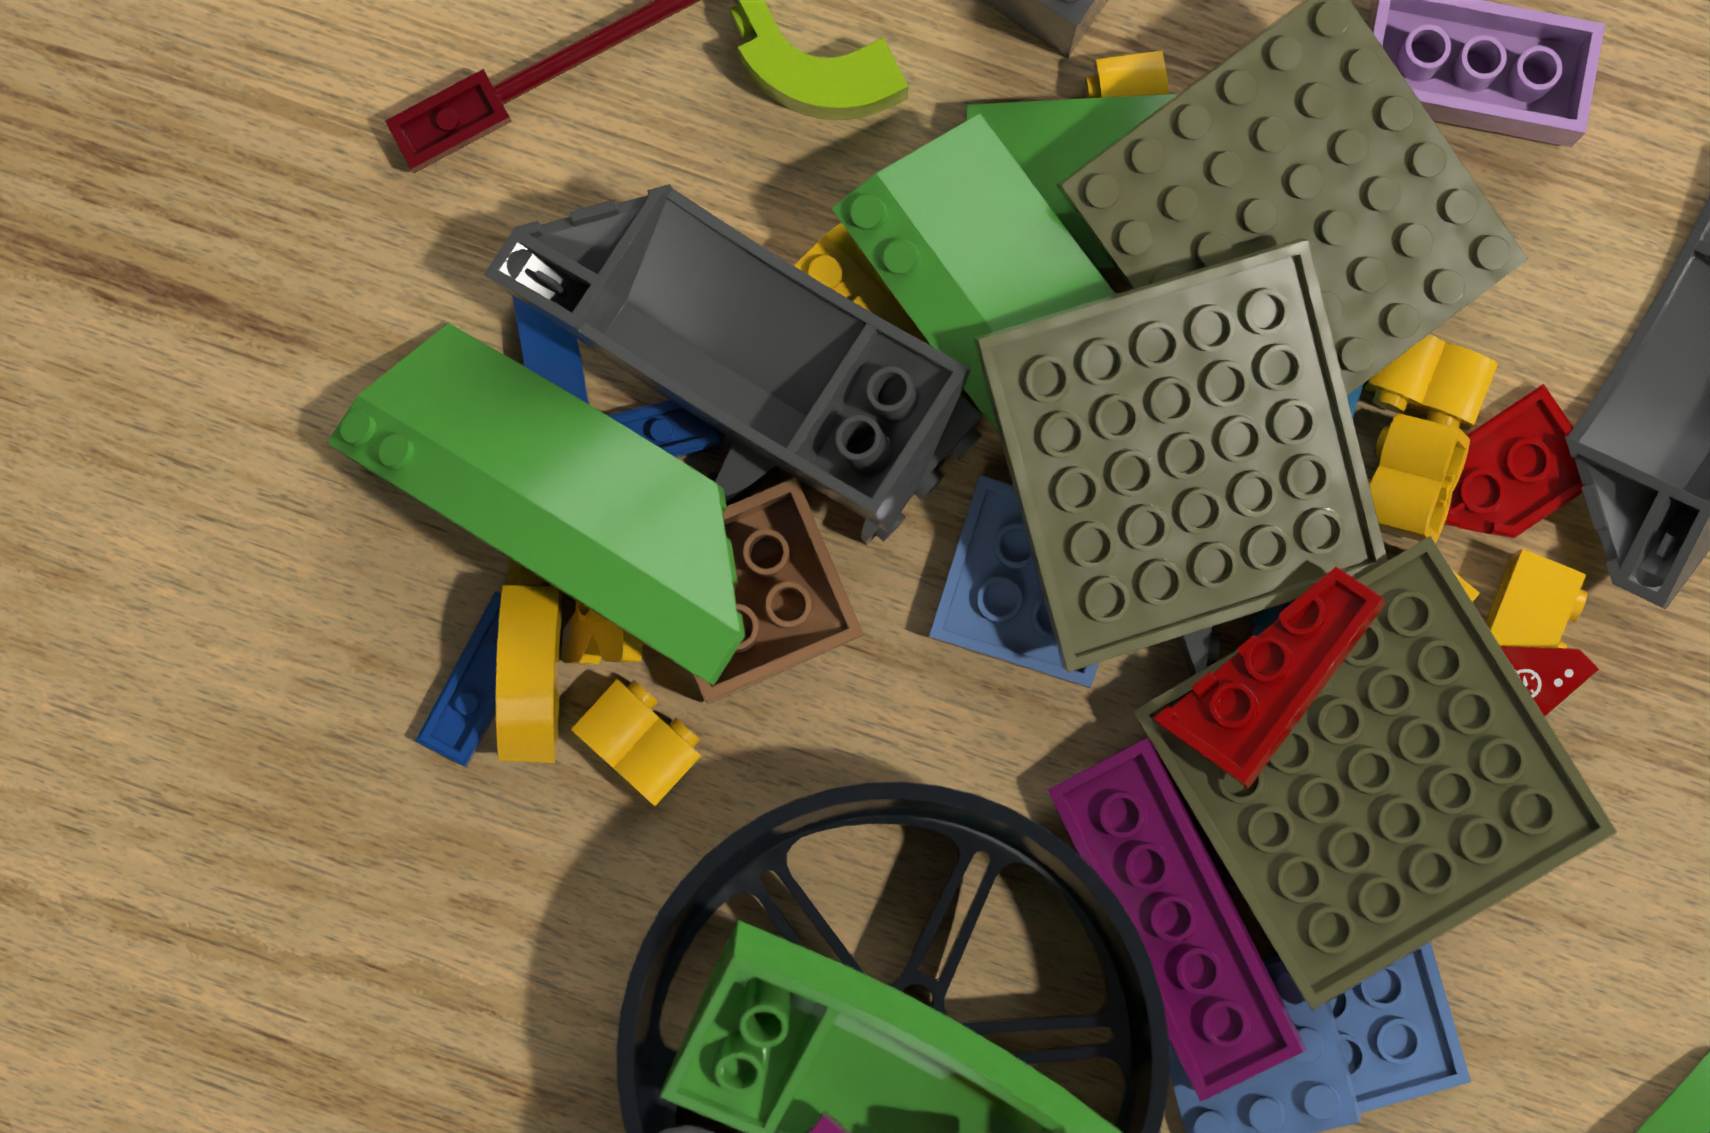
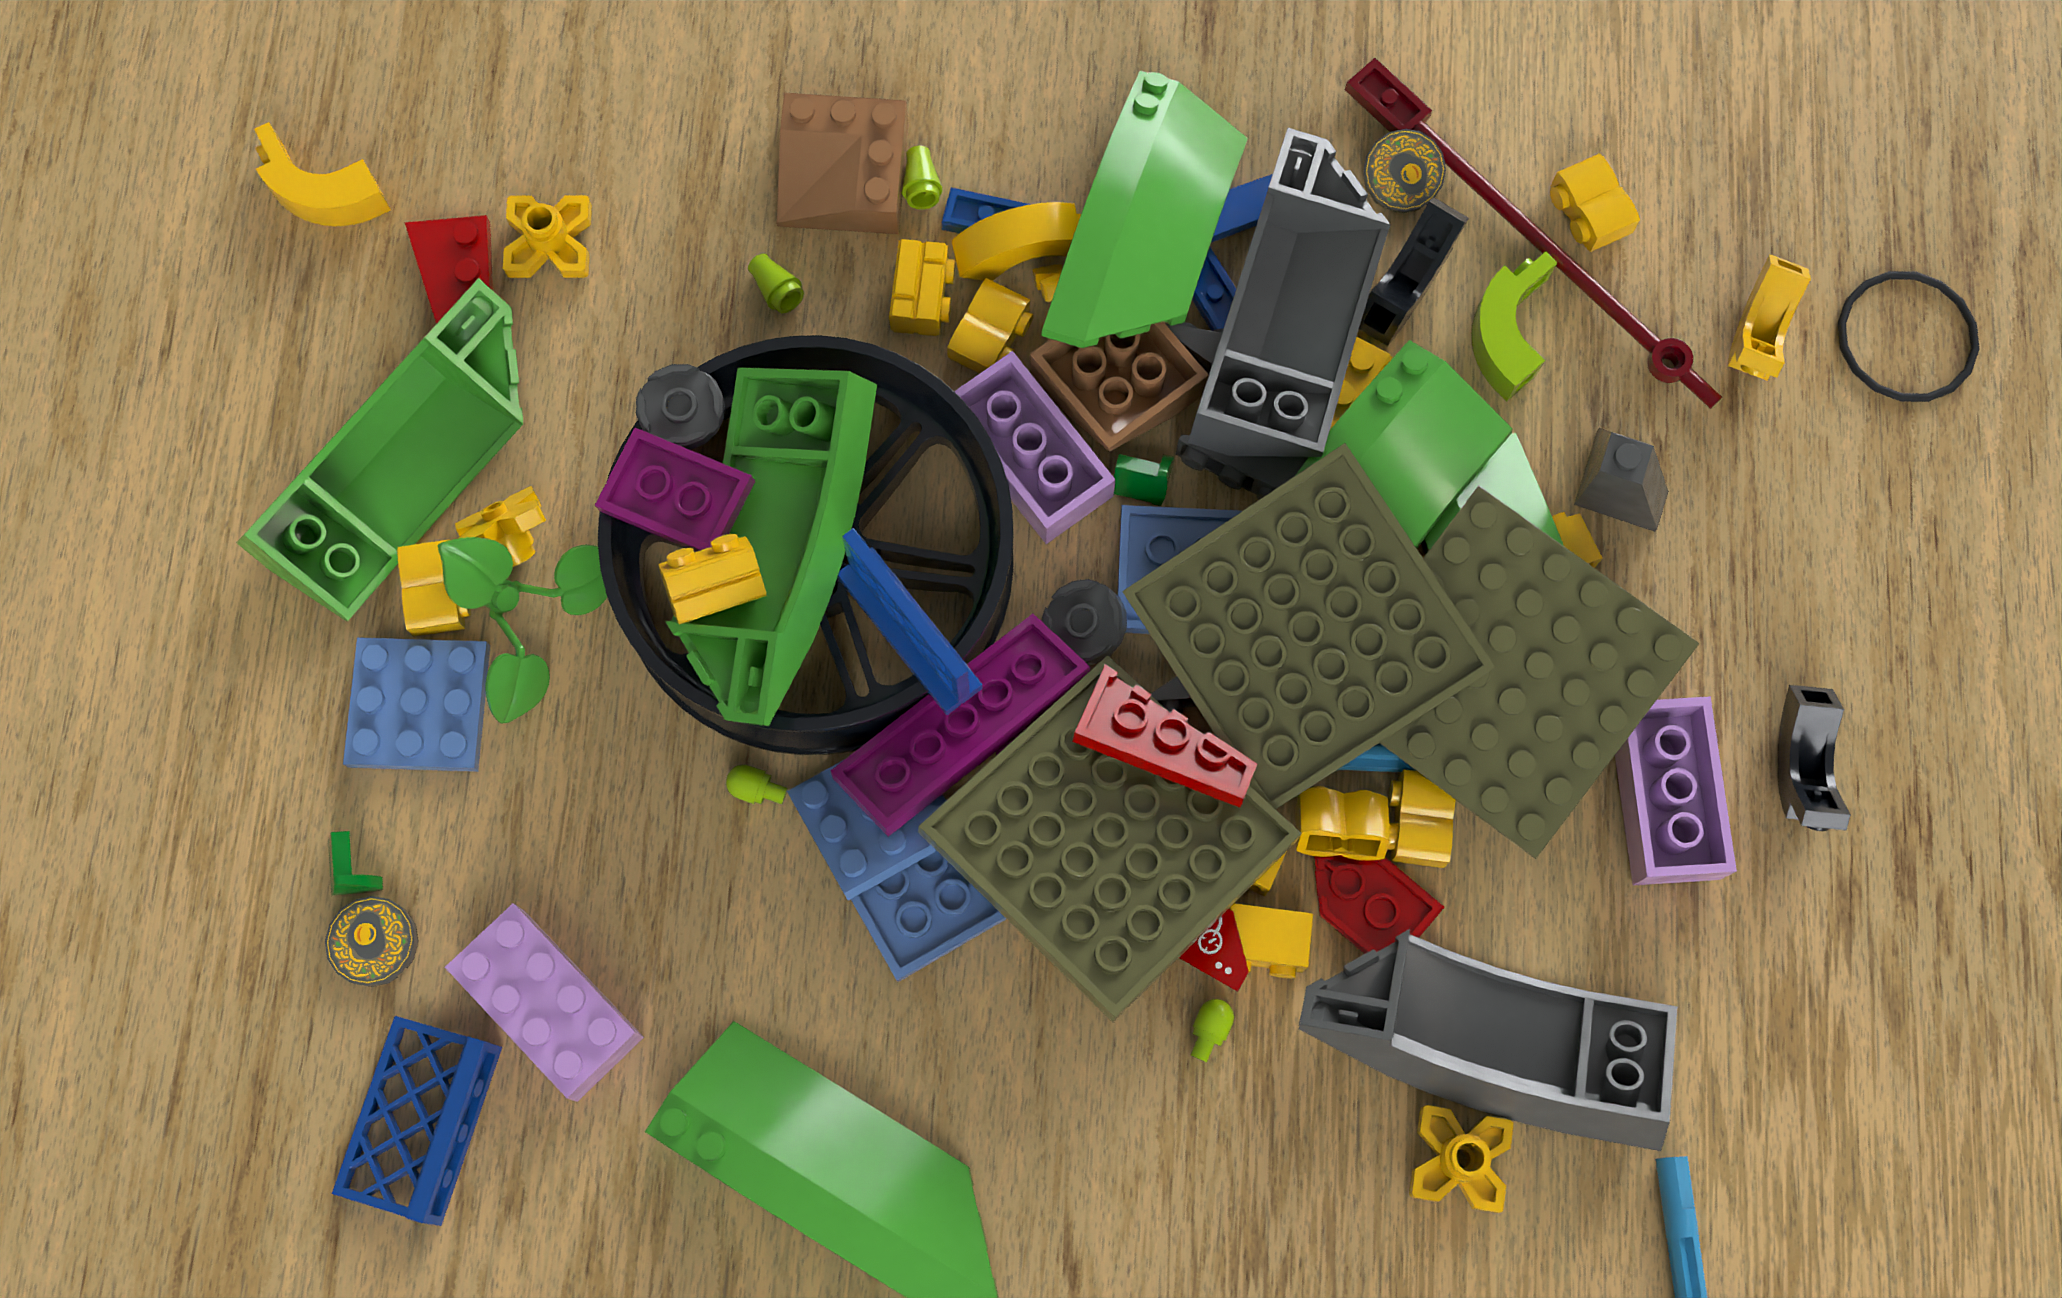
camera: 75 degrees right, 10 degrees down
(343, 880) = (841, 163): none -> medium nougat slope
(395, 777) = (921, 182): none -> lime cone
(495, 1010) = (778, 286): none -> lime cone
(552, 818) = (920, 287): none -> yellow brick
(559, 132) = (1404, 170): none -> tile
(712, 169) = (1412, 271): none -> black arch
(823, 732) = (1045, 460): none -> lavender brick
(900, 596) = (1143, 478): none -> green tile
(1070, 723) = (1087, 619): none -> dark grey tile
(1071, 959) = (906, 626): none -> blue fence
(1619, 710) = (1211, 1027): none -> lime cylinder

